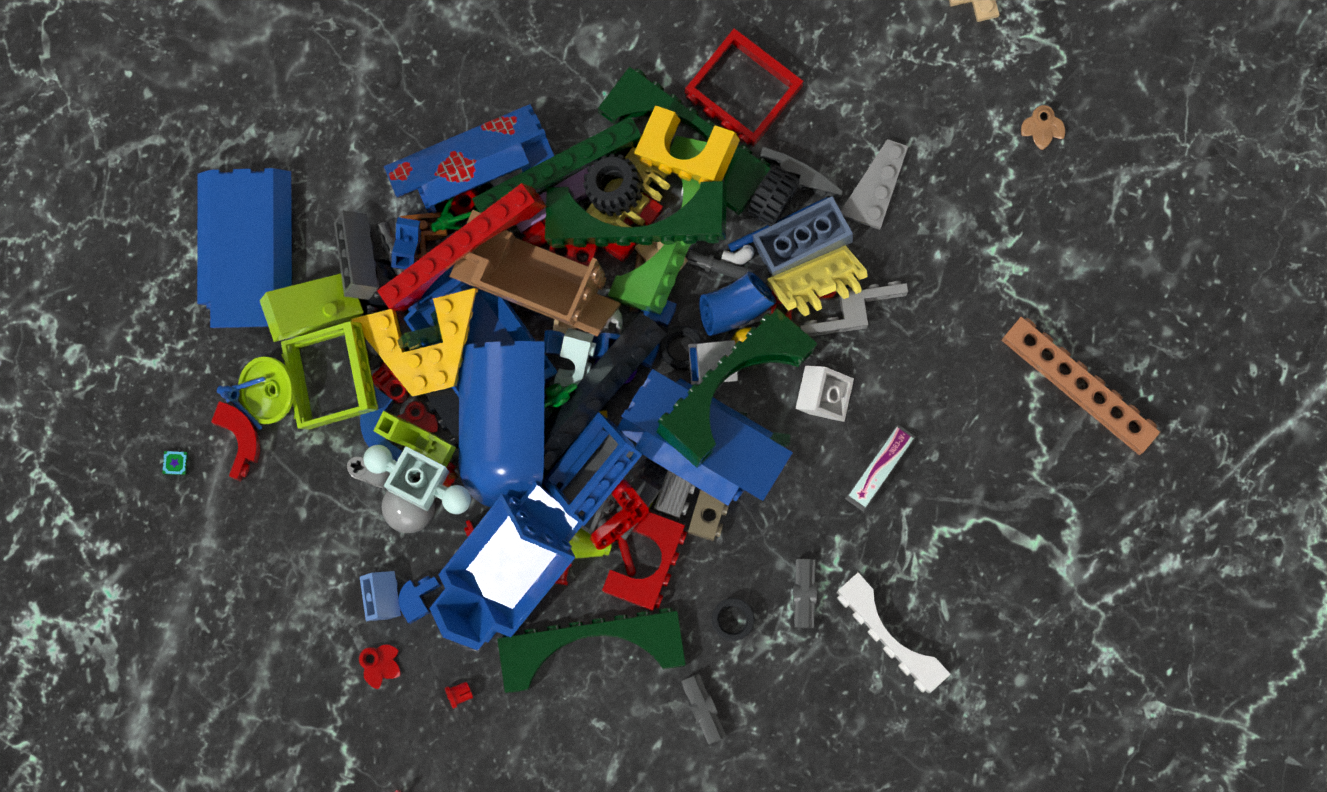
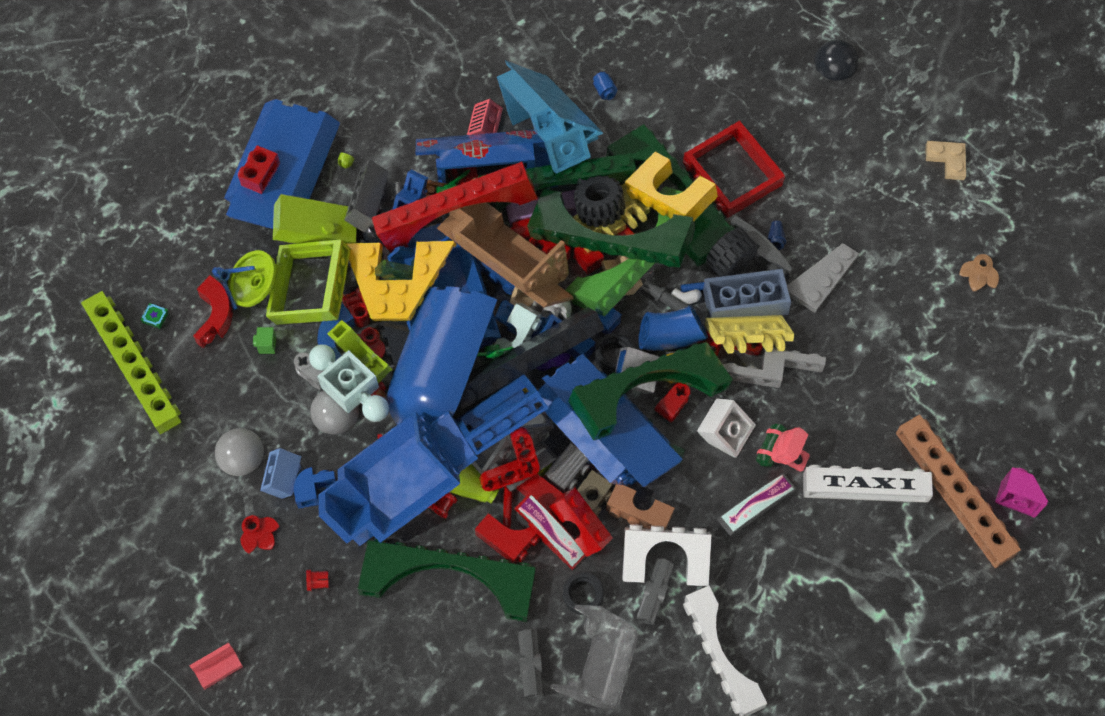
camera: 15 degrees right, 15 degrees down
(108, 477) = (95, 308): none -> lime brick
(232, 264) = (261, 170): none -> red brick
(306, 453) = (265, 340): none -> bright green plate
(312, 214) = (345, 160): none -> lime hinge
(325, 583) = (239, 452): none -> light grey piece
(449, 113) = (485, 118): none -> coral panel
(525, 95) = (552, 113): none -> dark azure panel
(570, 28) = (604, 86): none -> blue brick
(679, 567) = (550, 530): none -> slope
(696, 539) = (574, 508): none -> red arch
(760, 387) = (671, 404): none -> red piece
(775, 548) = (639, 541): none -> white arch
(778, 683) = (606, 661): none -> clear windscreen
(782, 517) = (621, 505): none -> nougat arch
(813, 152) = (776, 235): none -> dark blue cone
(890, 398) = (783, 447): none -> coral piece
(987, 409) = (867, 484): none -> white brick
(1145, 369) = (1021, 493): none -> dark pink slope

